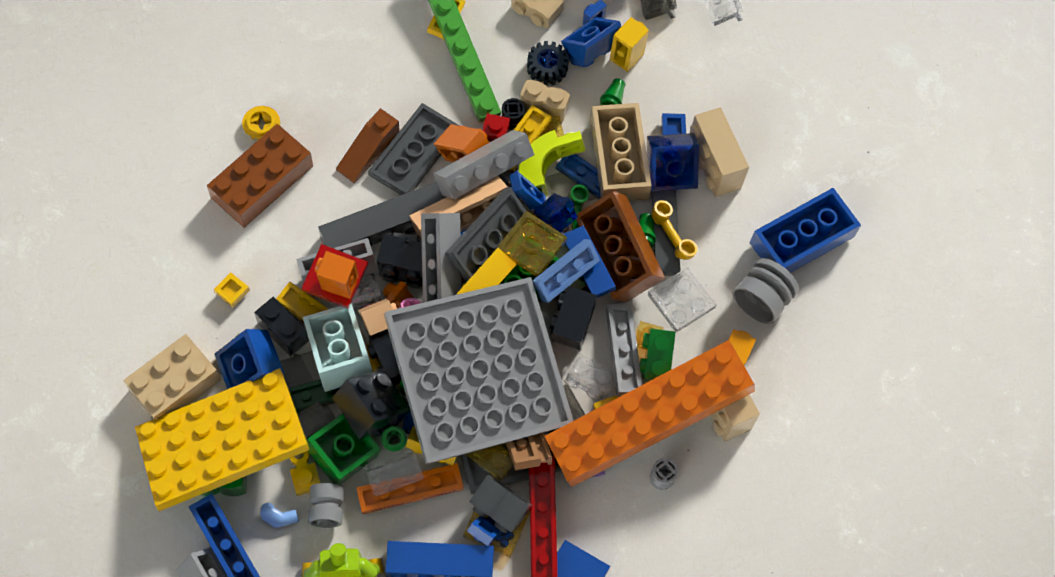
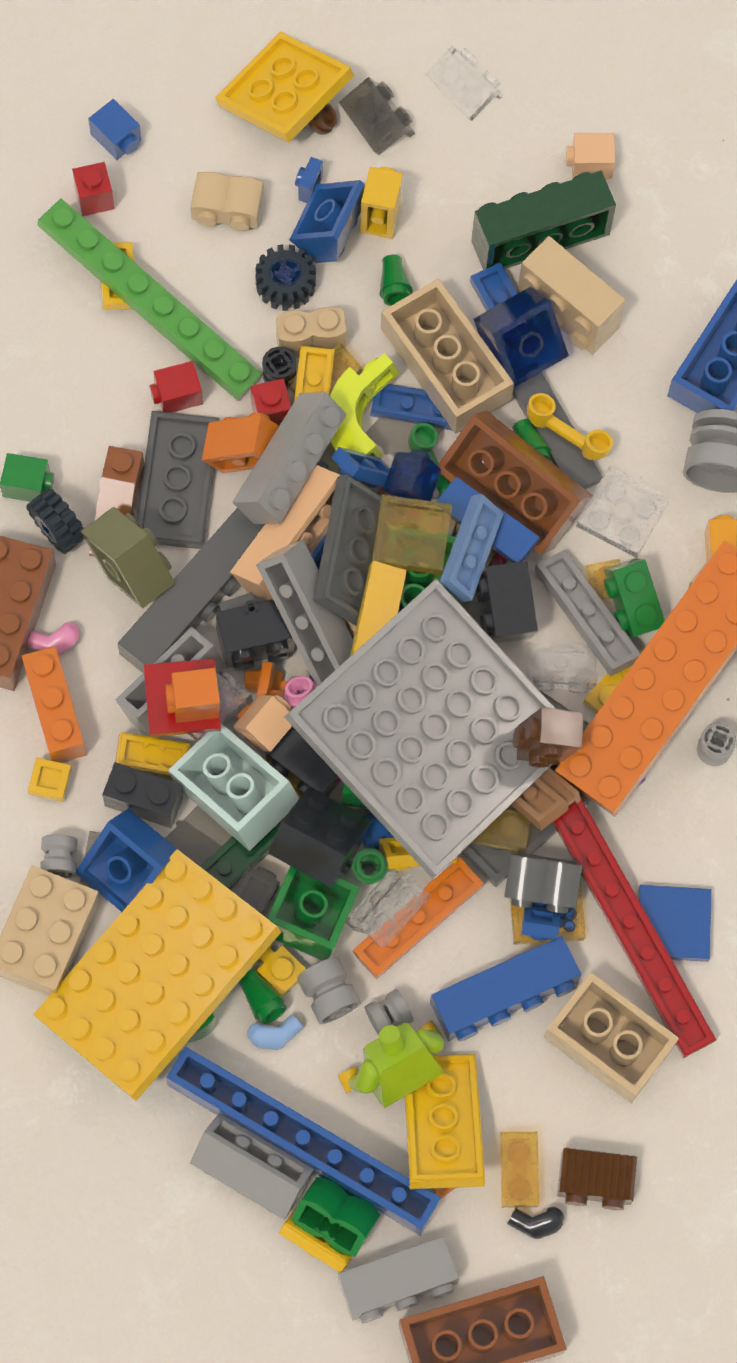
camera: 25 degrees left, 5 degrees up
(209, 337) = (59, 854): none -> light grey wheel
(259, 246) = (54, 705): none -> orange brick
(282, 491) = (262, 998): none -> green cone
(285, 211) = (62, 638): none -> bright pink arm
(322, 106) = (25, 477): none -> green brick
(324, 137) = (56, 520): none -> black wheel
(354, 177) = (129, 556): none -> olive brick
(362, 538) = (395, 1009): none -> light grey wheel
(444, 96) = (176, 387): none -> red brick
(547, 410) = (548, 737): none -> reddish brown brick
(743, 101) = (565, 211): none -> dark green brick
(777, 77) = (592, 153): none -> light nougat brick

